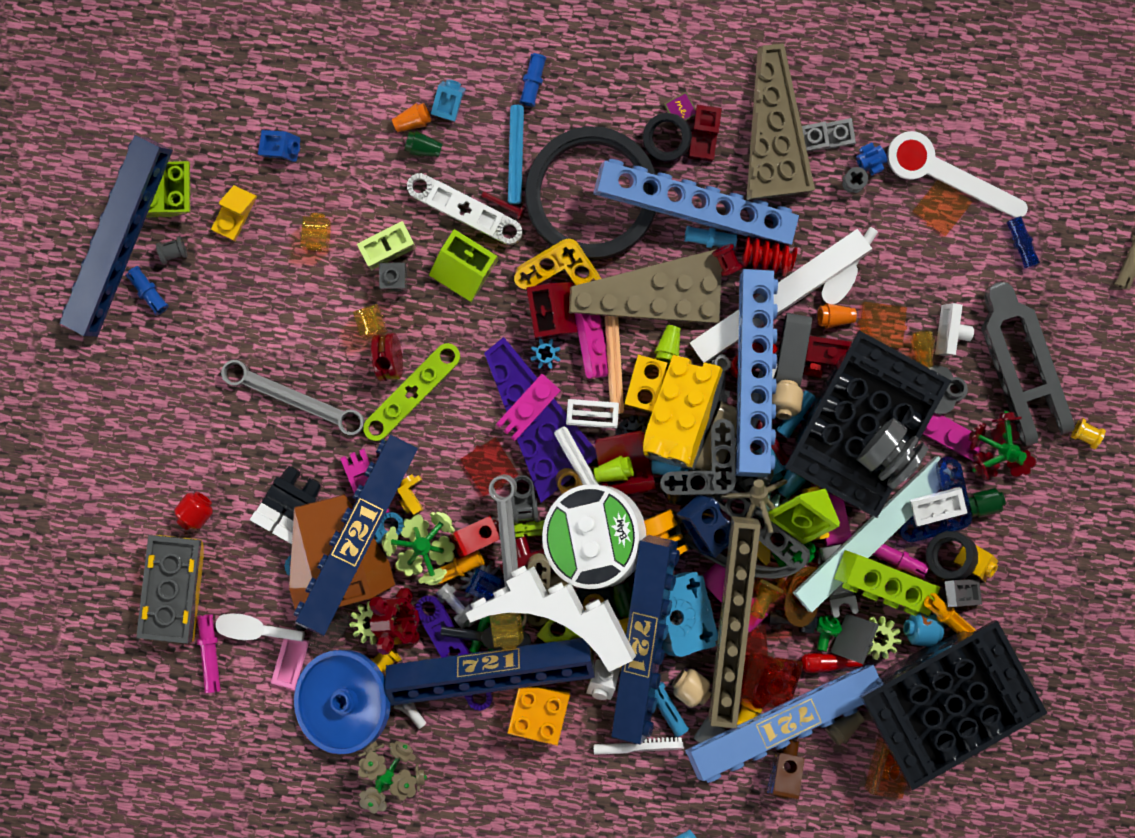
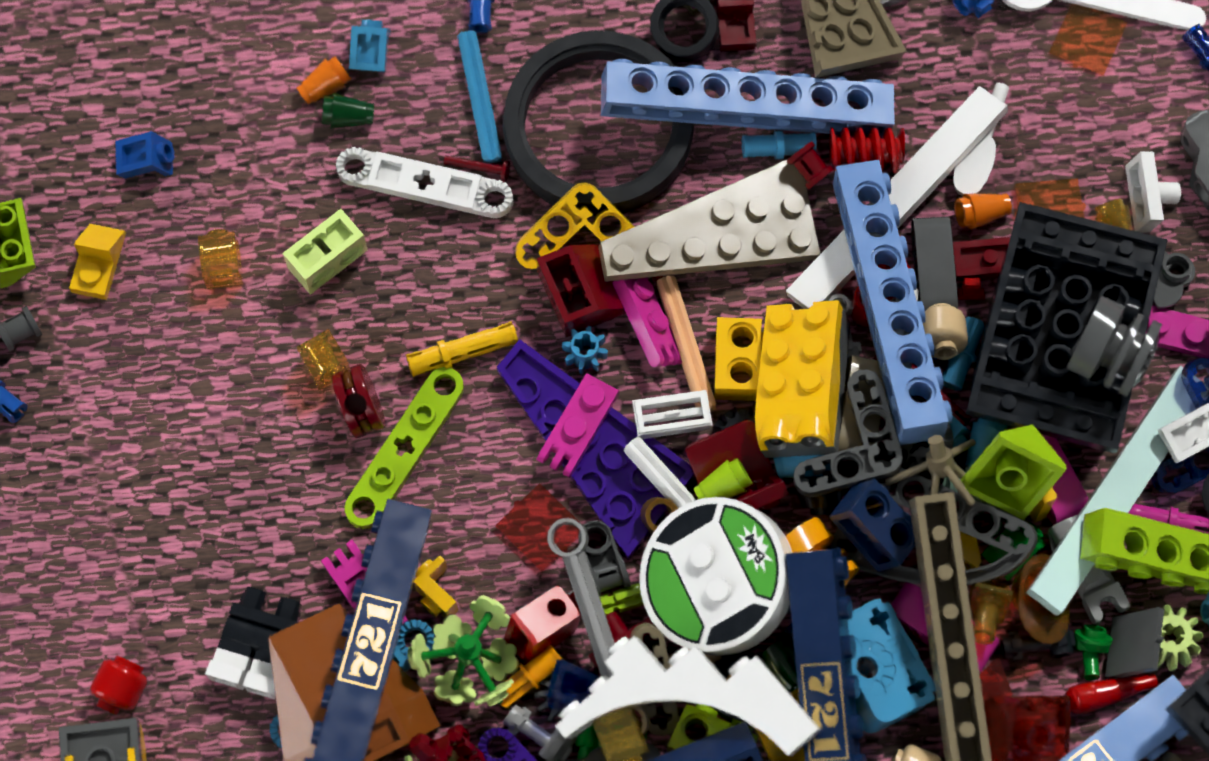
camera: 10 degrees left, 15 degrees down
(292, 397) = (233, 492): light grey piece -> none
(393, 277) = (343, 293): dark grey brick -> none
(463, 265) = (440, 254): lime slope -> none
(464, 333) = (454, 351): none -> yellow pin
(668, 344) = (756, 296): lime cone -> none
(852, 173) = (953, 18): dark grey bush -> none

